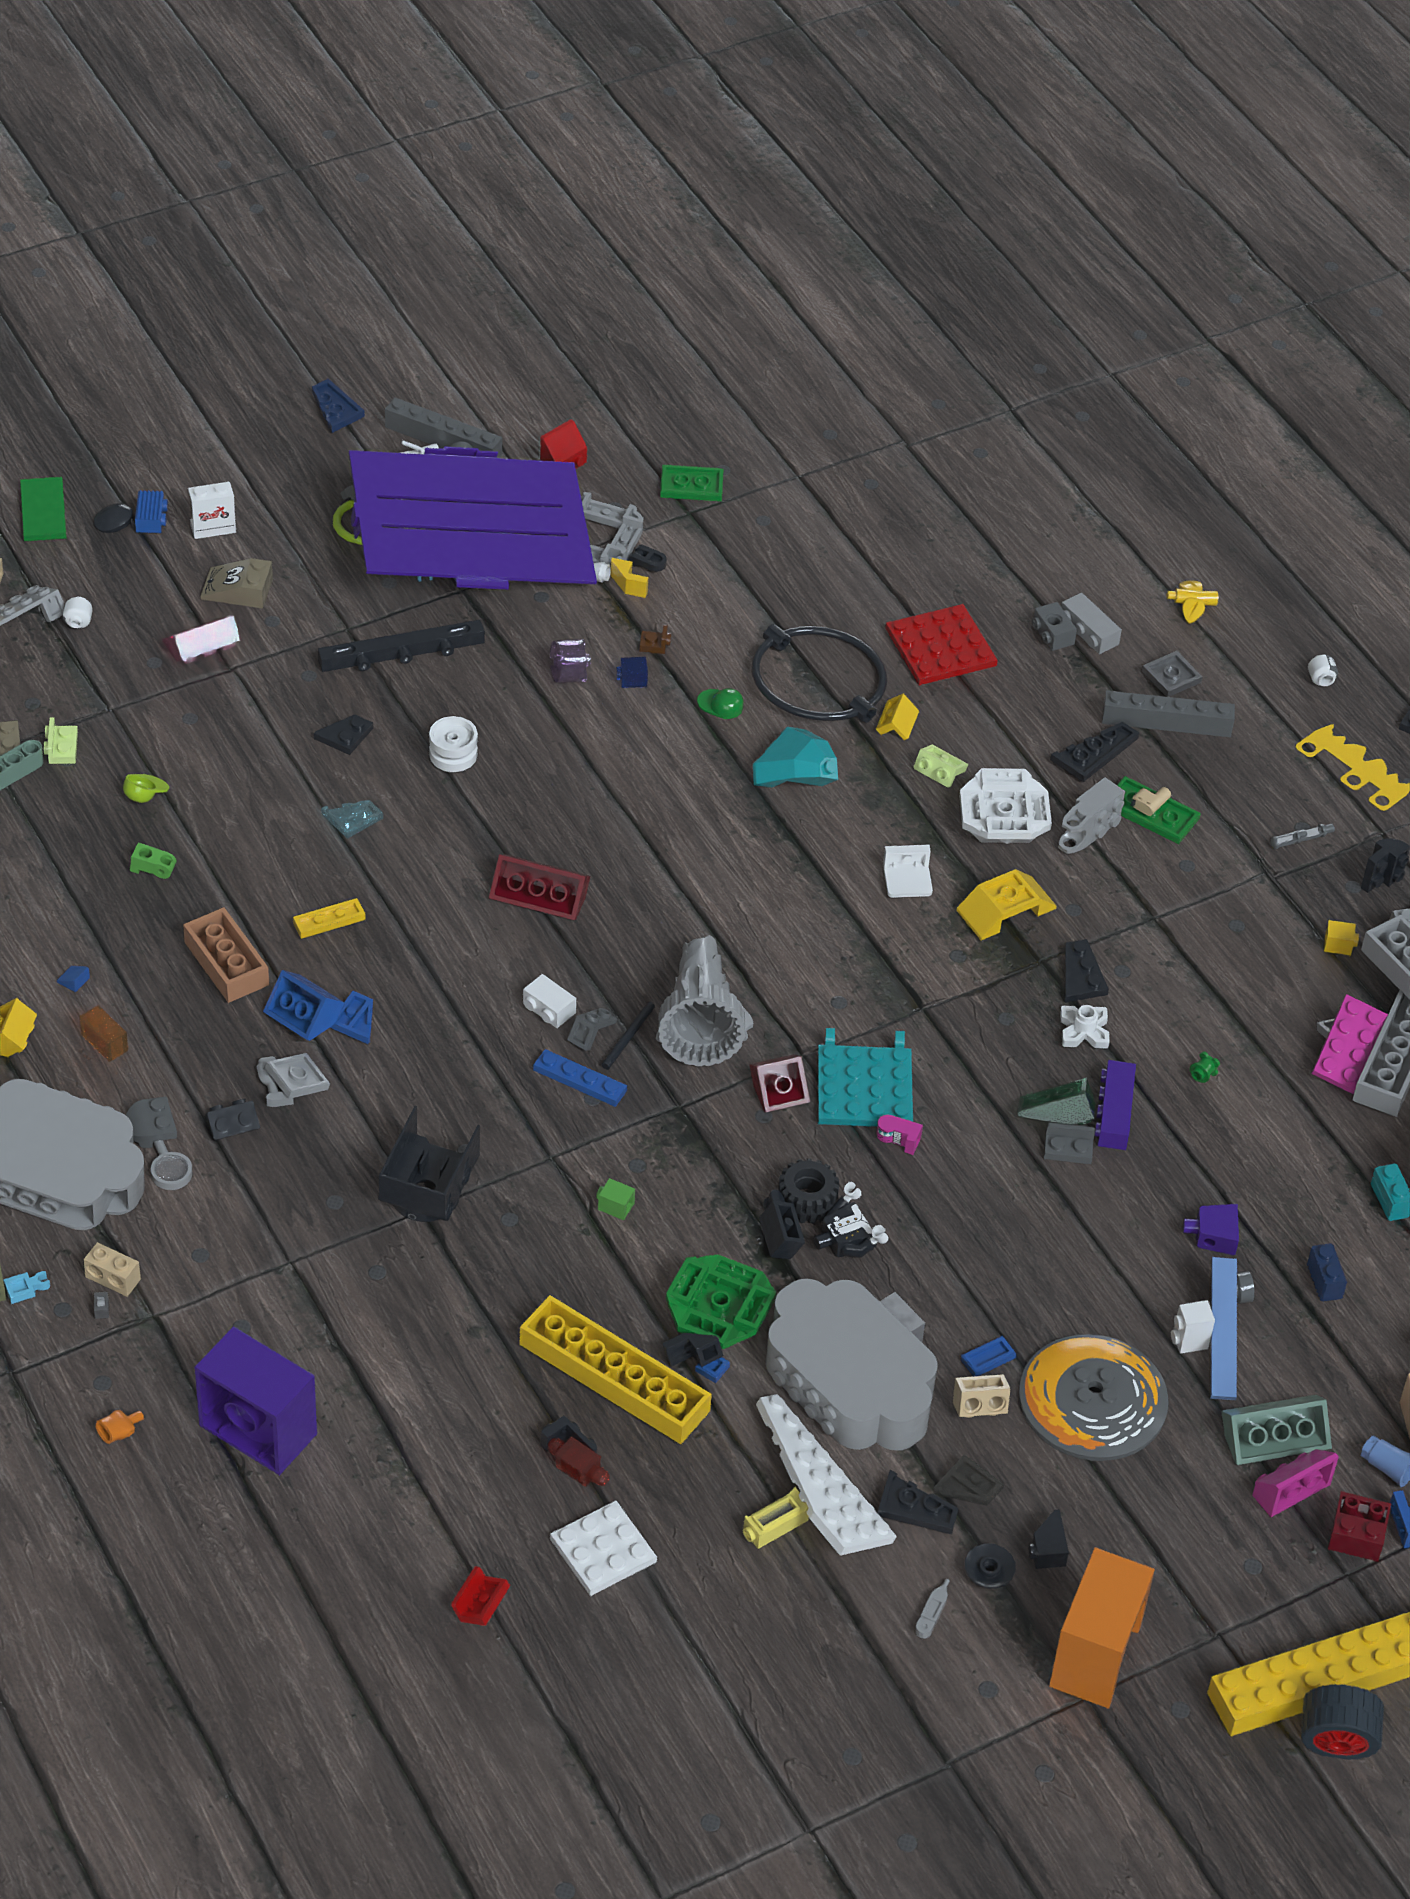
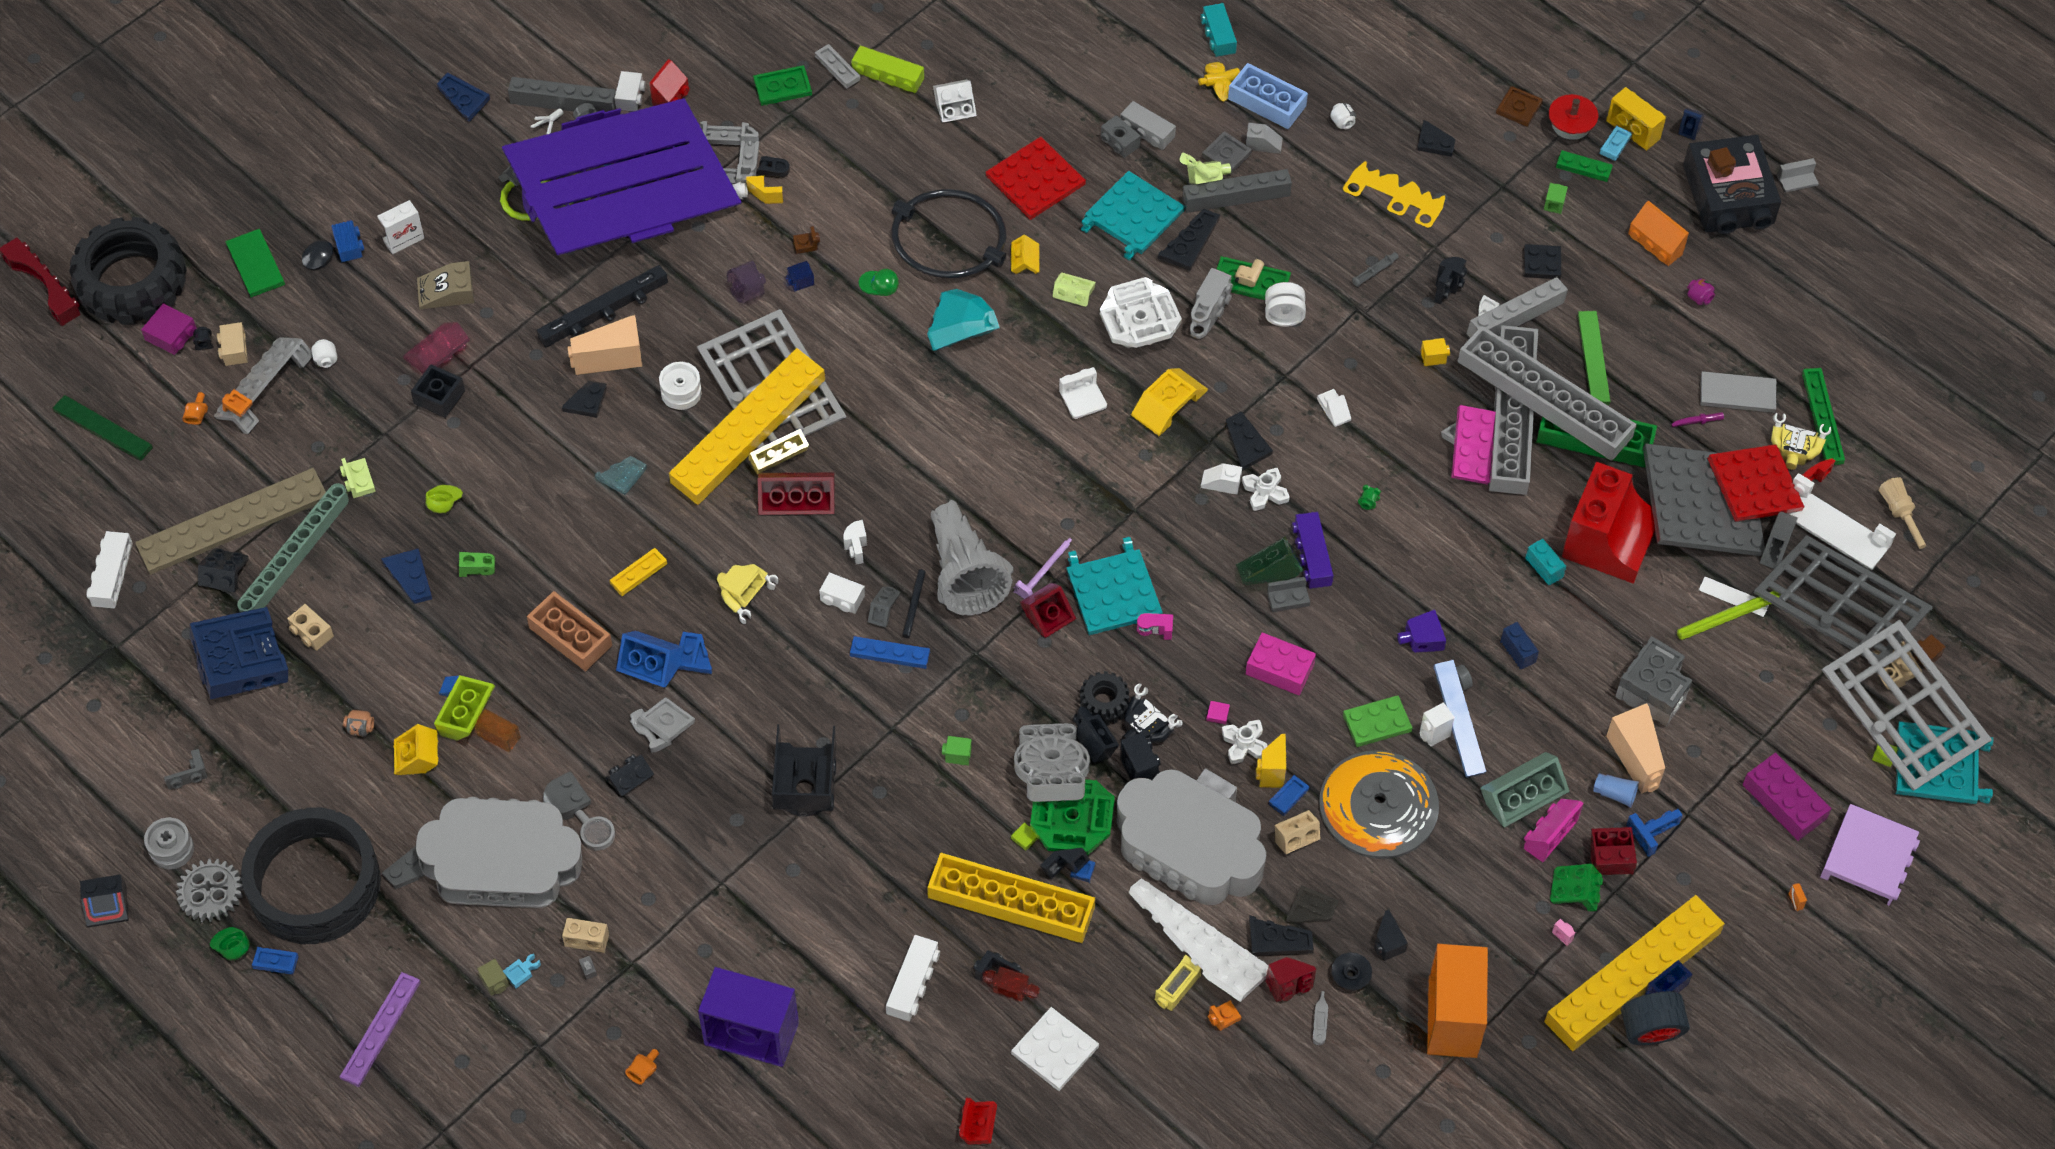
camera: 15 degrees left, 10 degrees up
(73, 997) = (463, 707): none -> lime slope
(77, 854) = (410, 574): none -> dark blue wing
(184, 679) = (437, 390): none -> black brick
(387, 685) = (606, 348): none -> light nougat slope
(439, 960) = (741, 586): none -> light yellow torso
(466, 1422) = (912, 978): none -> white brick
(510, 802) = (747, 426): none -> yellow brick
(512, 772) = (737, 397): none -> light grey door
(519, 443) = (629, 91): none -> white brick
(536, 837) = (778, 451): none -> brick
(586, 949) = (855, 539): none -> white brick
(657, 1312) = (1024, 836): none -> lime tile
(717, 1237) = (1051, 762): none -> light grey piece
(758, 1054) = (1026, 590): none -> lavender piece
(760, 478) = (837, 66): none -> light grey plate
(815, 495) = (888, 69): none -> lime brick
(817, 1570) = (1224, 1015): none -> orange bracket
(822, 1258) = (1139, 758): none -> black brick
(879, 544) = (955, 100): none -> white slope
(911, 1549) = (1289, 978): none -> dark red slope
(938, 1245) = (1218, 712): none -> dark pink tile
(957, 1281) = (1244, 740): none -> white plant
(979, 1313) = (1272, 765): none -> yellow slope
(1031, 1212) = (1280, 664): none -> dark pink brick
(1039, 708) = (1133, 213): none -> teal plate
(1039, 1002) = (1222, 478): none -> white slope
(1125, 1307) = (1377, 721): none -> bright green plate
(1138, 682) = (1206, 171): none -> yellowish green torso
(1179, 840) = (1285, 304): none -> white wheel
(1200, 965) = (1334, 407): none -> white slope
(1210, 549) = (1218, 30): none -> teal brick
(1219, 669) = (1263, 138): none -> light grey slope
(1241, 627) = (1267, 96): none -> light blue brick
(1266, 1598) = (1563, 932): none -> bright pink plate
(1303, 1549) = (1577, 884): none -> green bracket
(1385, 1684) = (1672, 979): none -> clear blue brick

